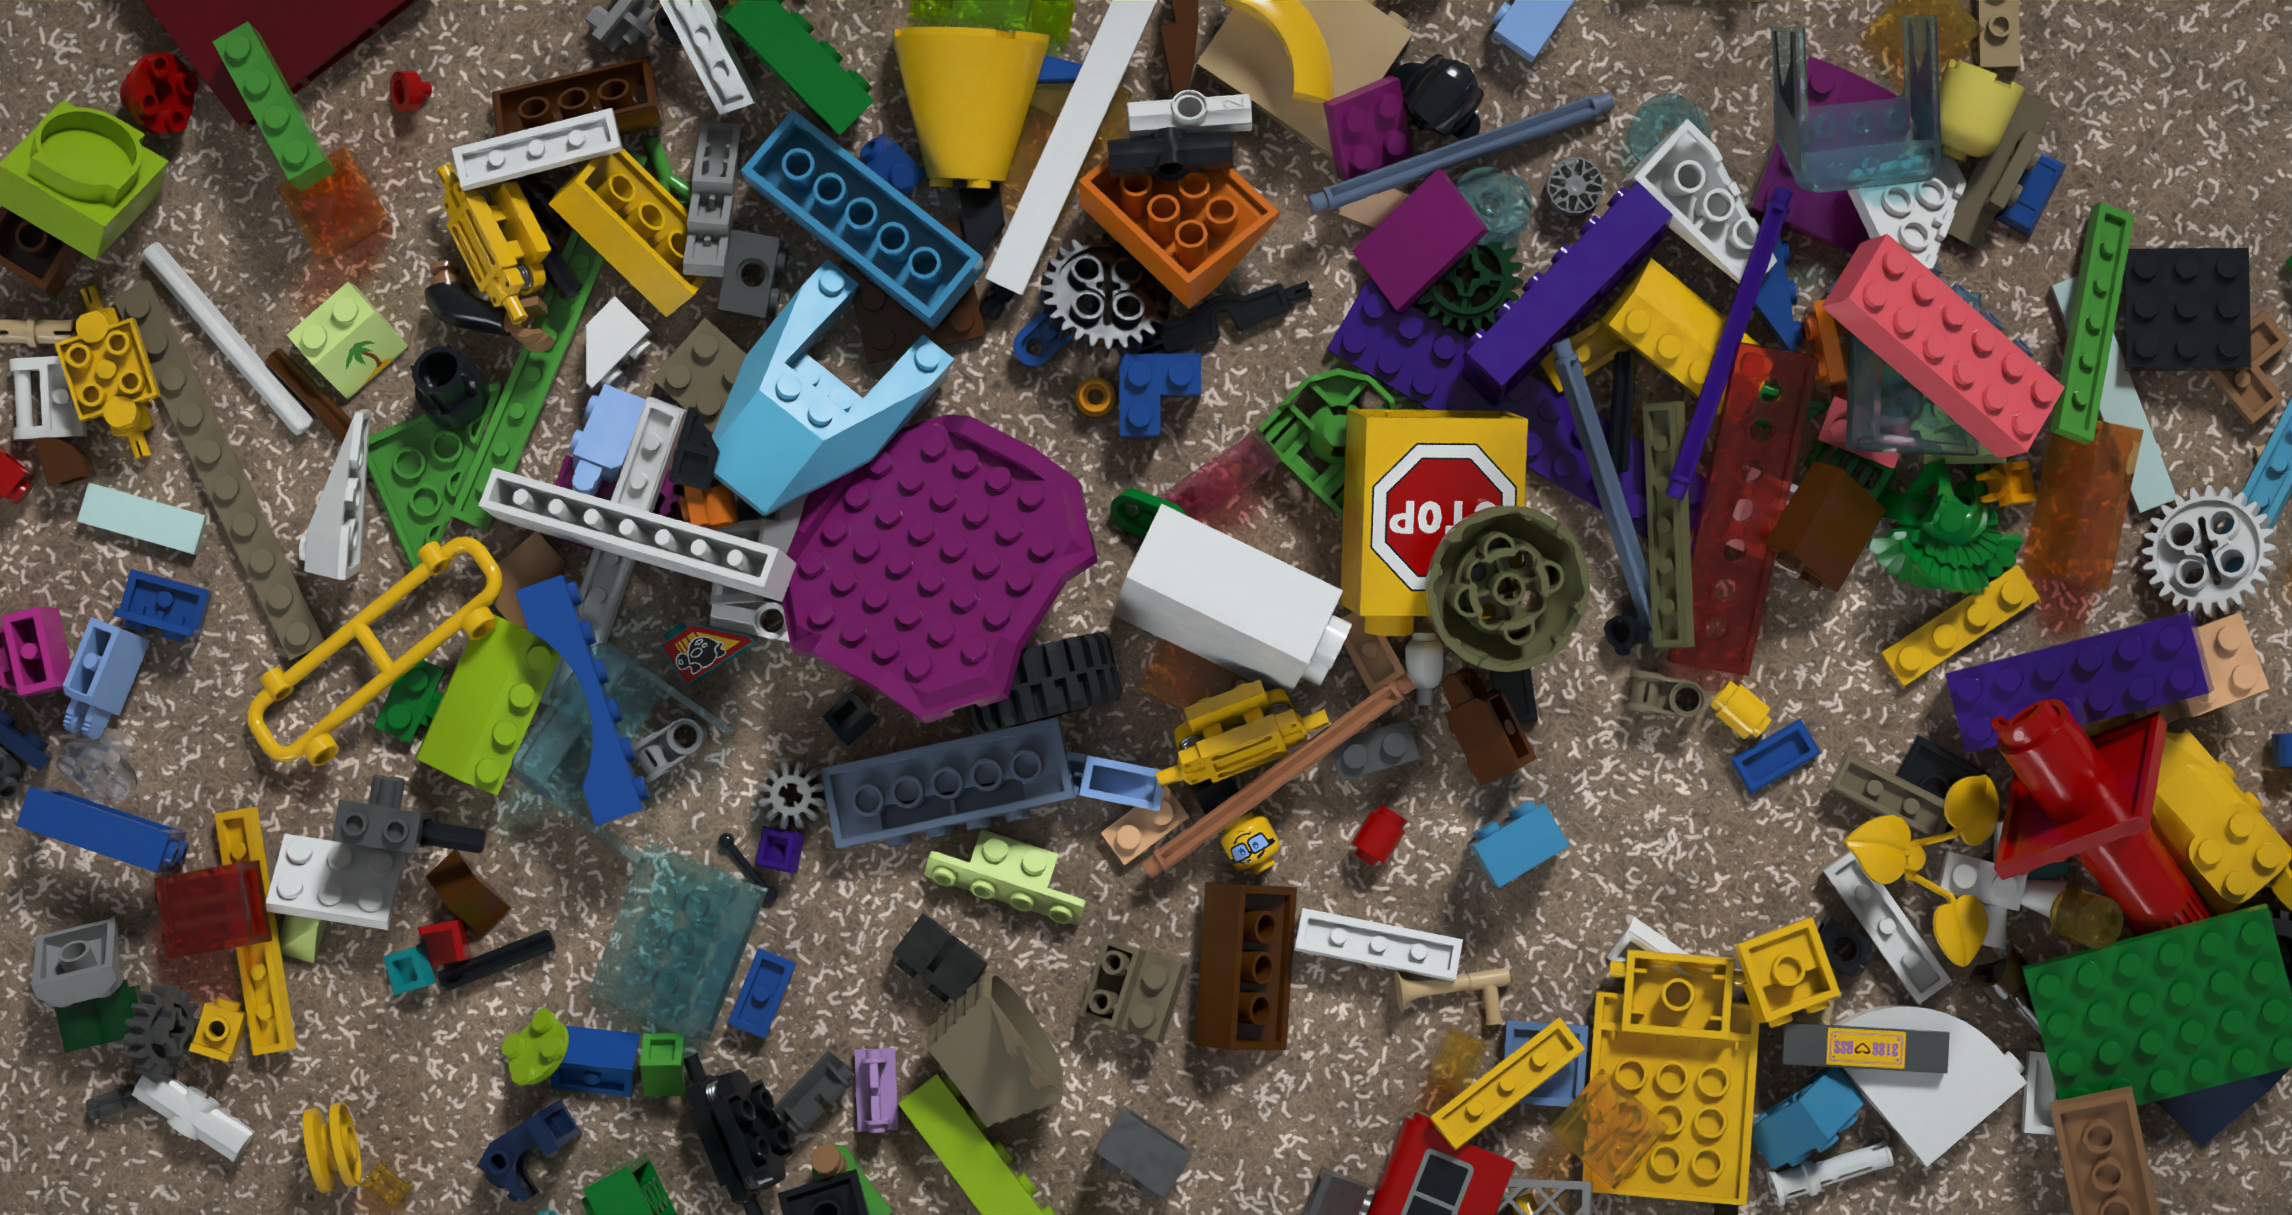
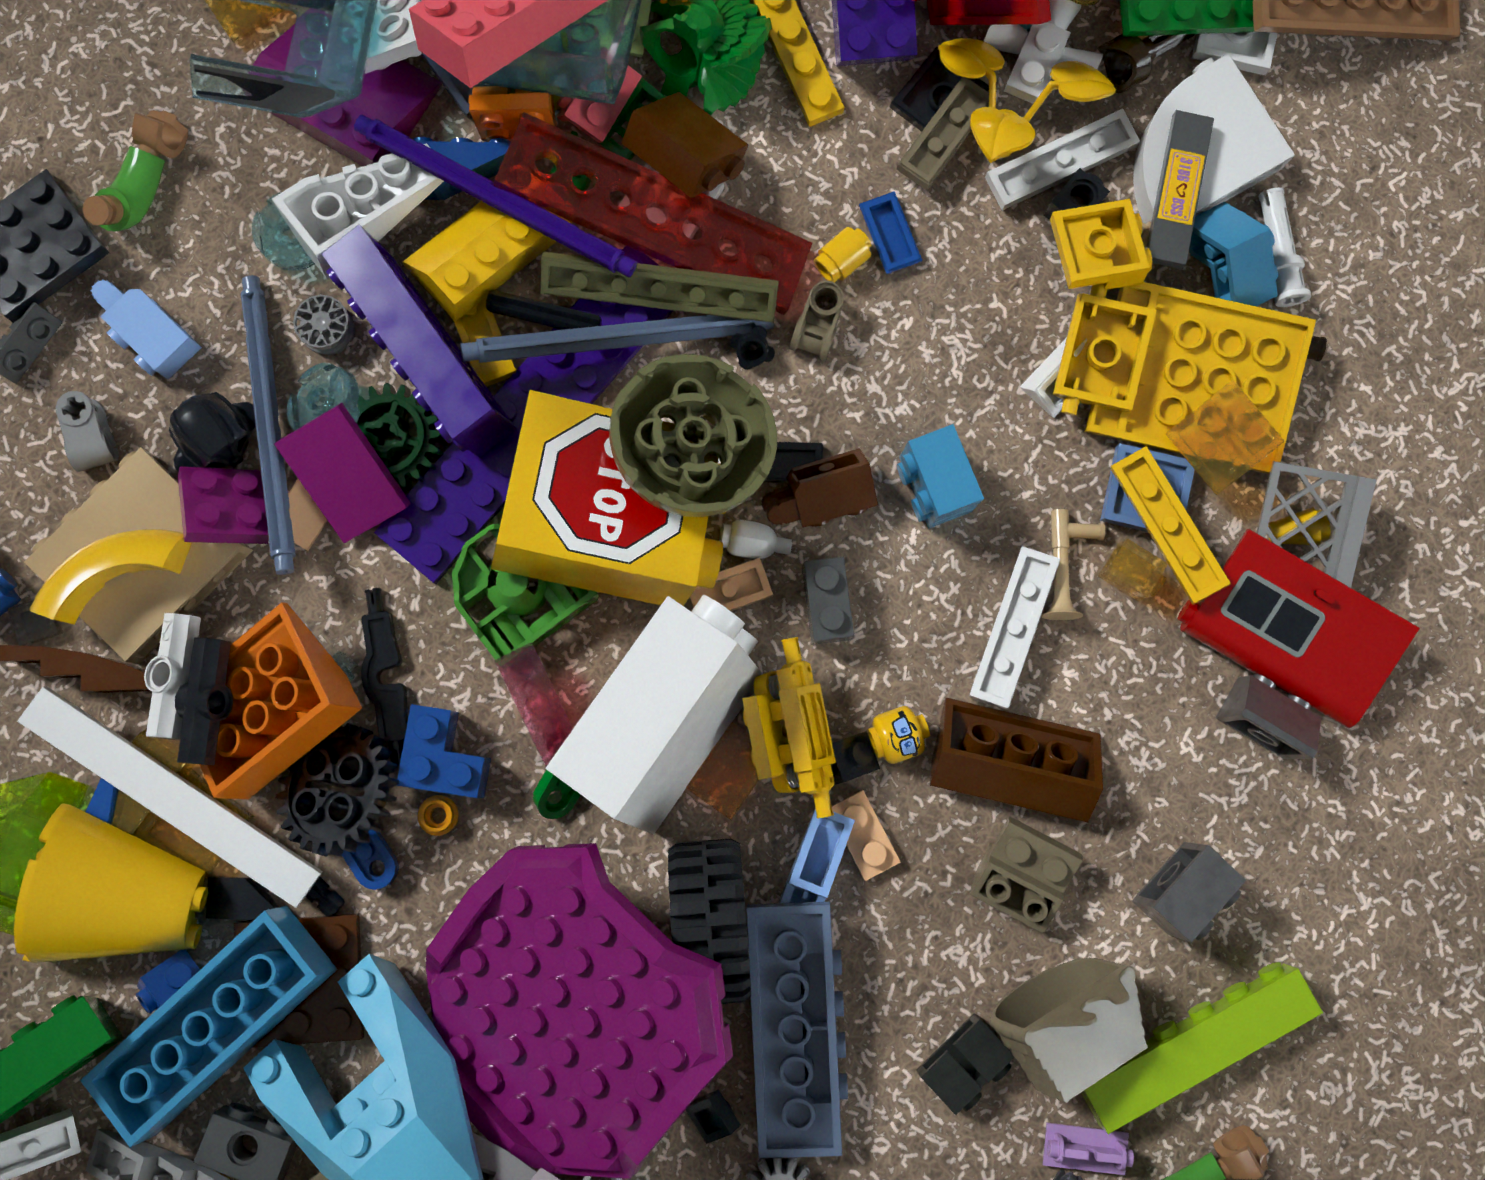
camera: 90 degrees left, 5 degrees down
(1008, 873) = (891, 978): yellowish green bracket -> none
(1279, 774) = (839, 696): nougat piece -> none
(1379, 835) = (910, 610): red brick -> none

